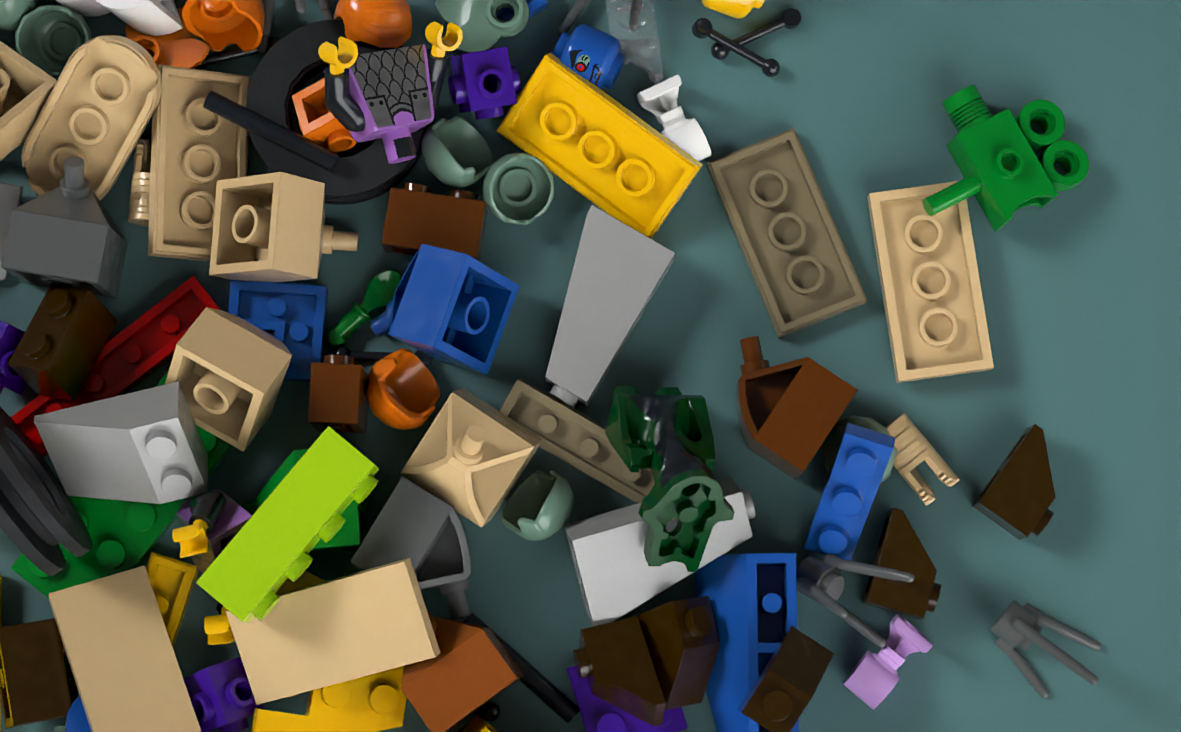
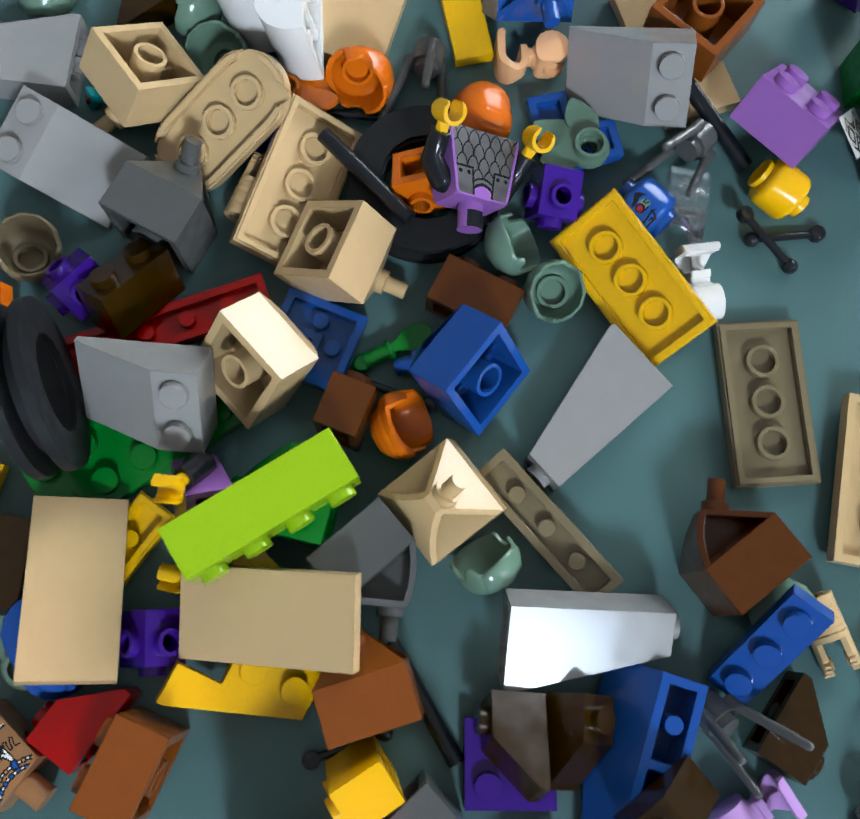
camera: 10 degrees right, 5 degrees down
(677, 443) = (630, 551): dark green hips -> none

